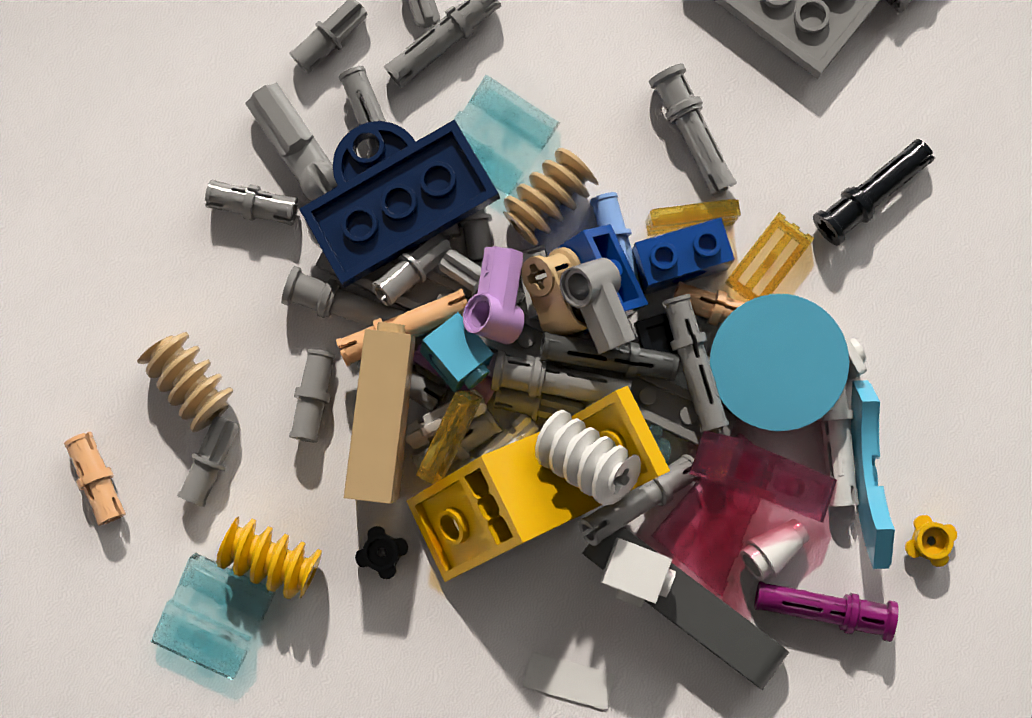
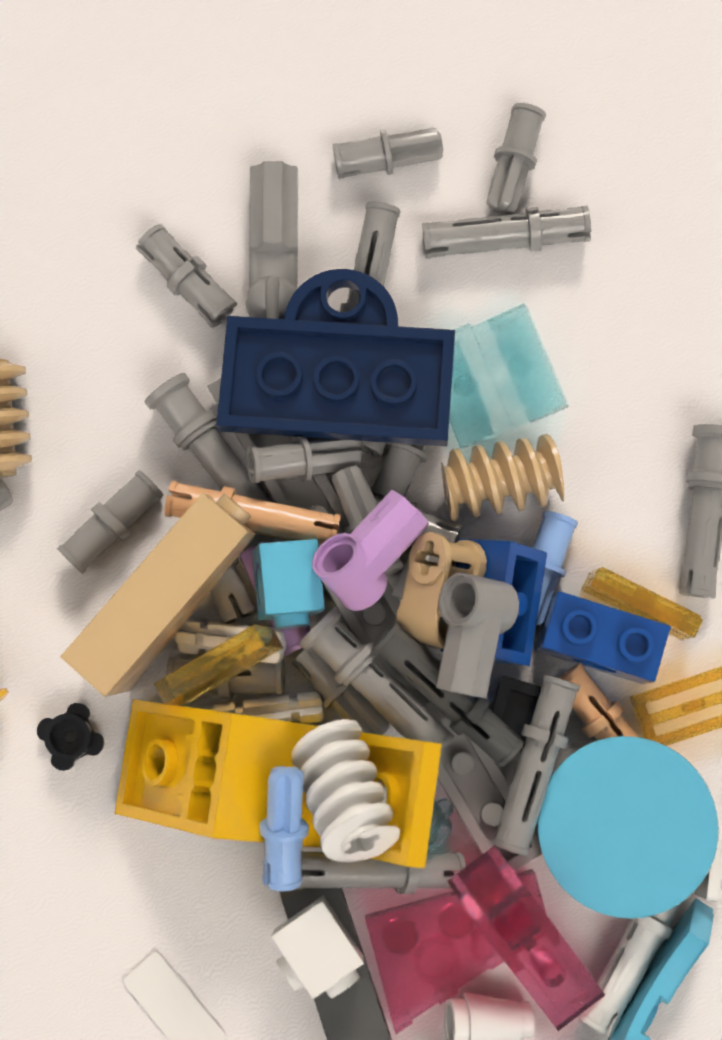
camera: 30 degrees right, 0 degrees up
(564, 508) = (283, 829): none -> light blue axle

